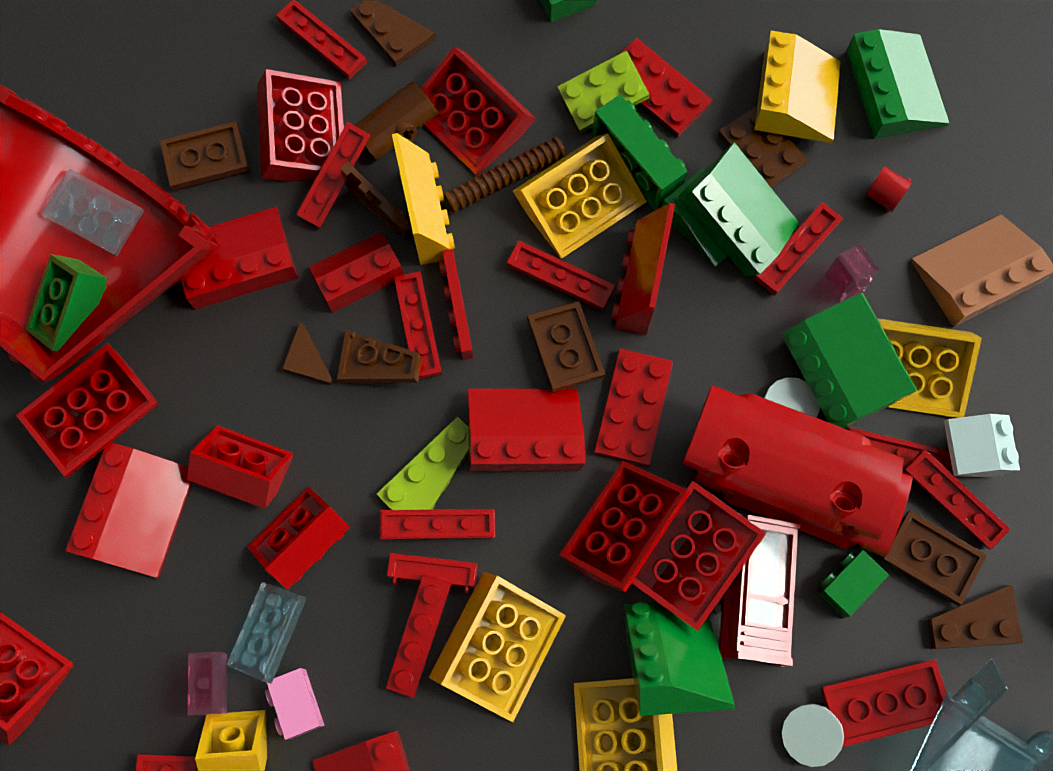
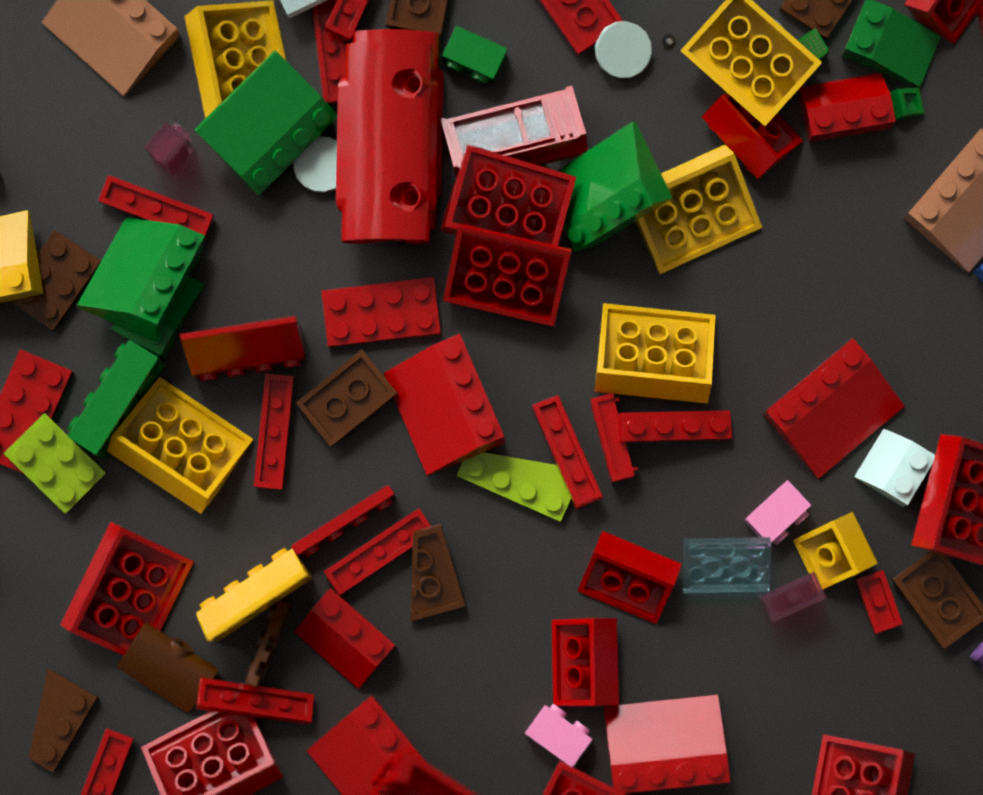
camera: 110 degrees left, 10 degrees up
(186, 417) = (559, 735): none -> bright pink brick
(304, 358) = (455, 649): reddish brown tile -> none
(505, 174) = (185, 529): reddish brown piece -> none
(888, 189) = (59, 140): red piece -> none

